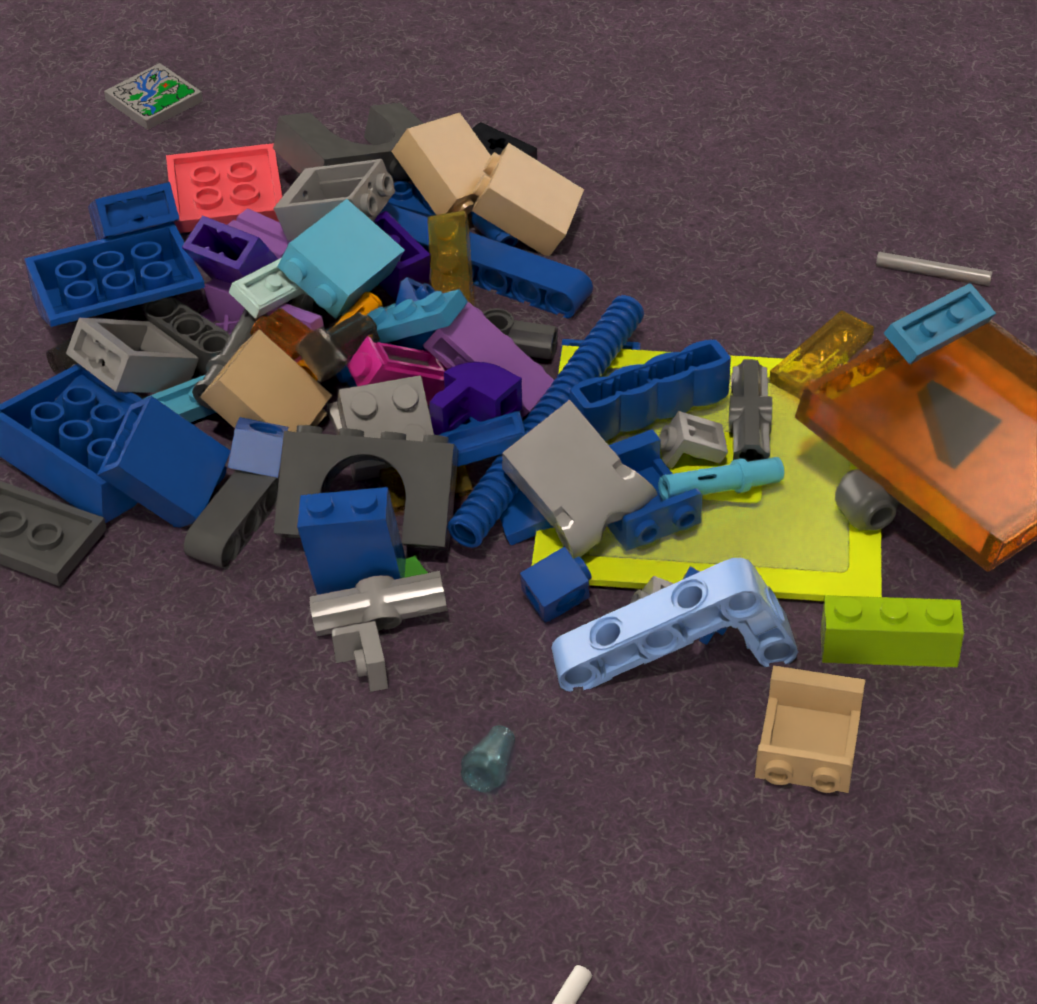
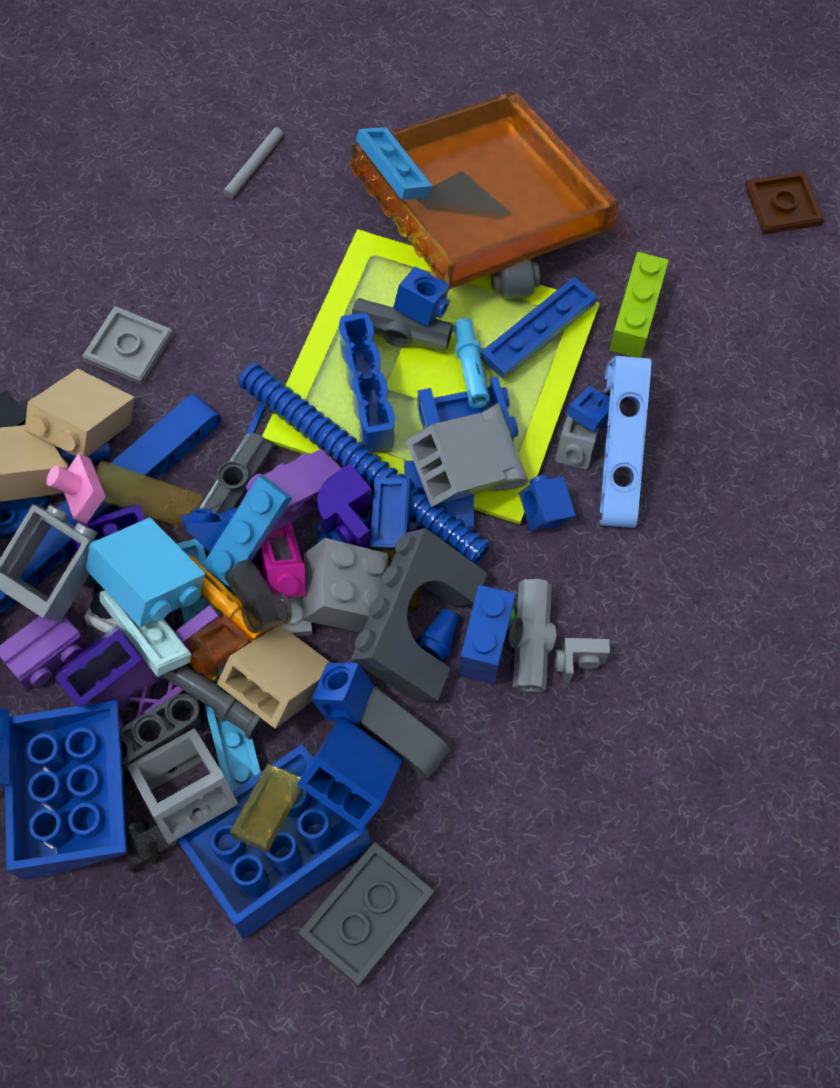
camera: 80 degrees left, 20 degrees up
(101, 402) = (266, 808): none -> clear yellow plate
(428, 201) = (79, 486): none -> bright pink tile
(488, 760) = (700, 591): clear light blue cone -> none
(640, 230) = (127, 345): none -> light grey tile
(694, 437) = (417, 371): light grey bracket -> none
(775, 399) = (422, 297): none -> blue brick
(806, 536) = (538, 328): none -> blue plate
(810, 729) = (714, 383): tan panel -> none
(821, 352) = (347, 259): clear yellow plate -> none

